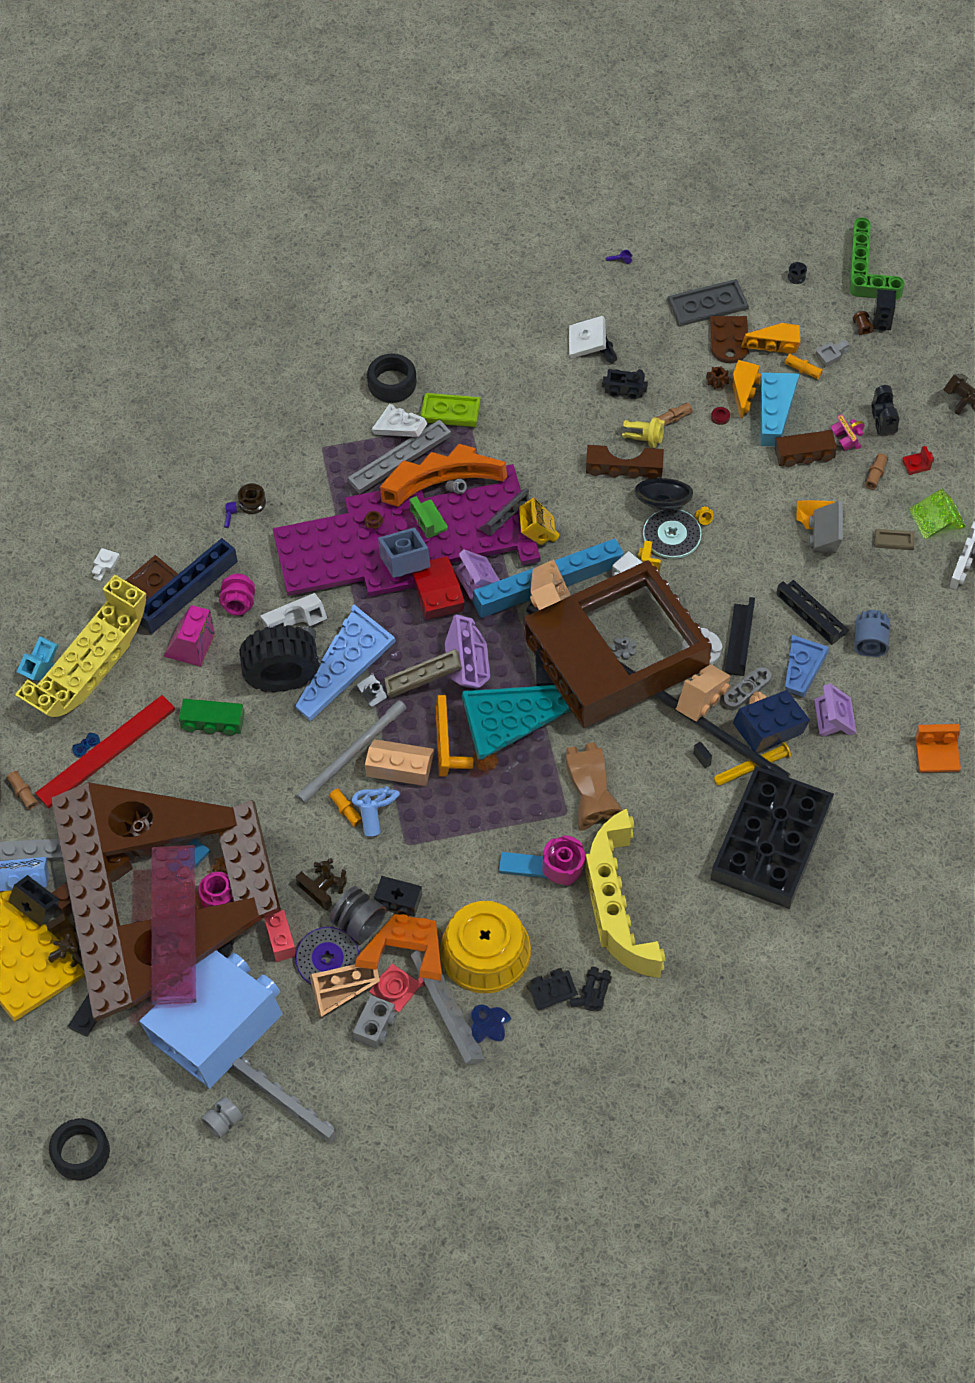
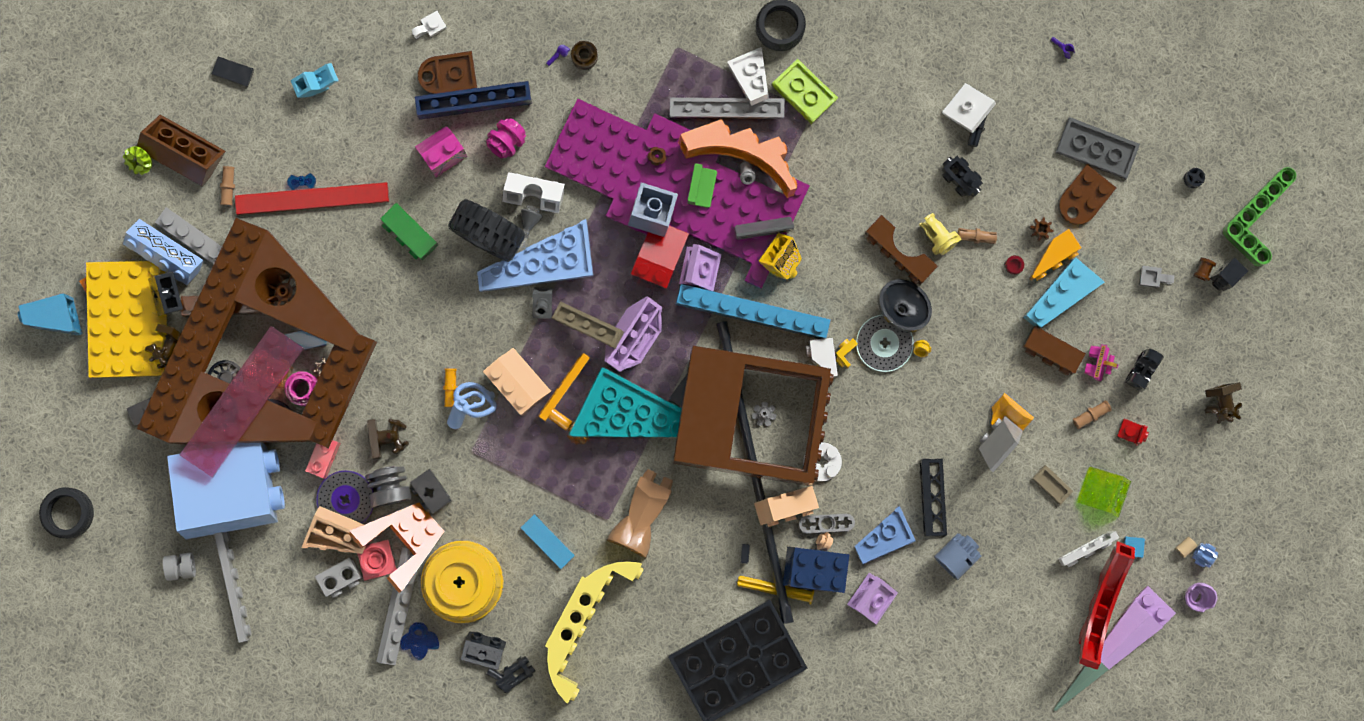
camera: 30 degrees right, 25 degrees up
(91, 653) = (347, 109): light yellow slope -> none
(389, 716) = (438, 351): light grey piece -> none
(547, 585) = (733, 333): light nougat wedge -> none
(563, 860) = (558, 557): dark pink brick -> none
(739, 638) = (857, 476): black fence -> none
(776, 338) = (1123, 232): light orange slope -> none
(803, 366) = (1120, 272): light orange pin -> none
(938, 748) = (922, 689): orange bracket -> none

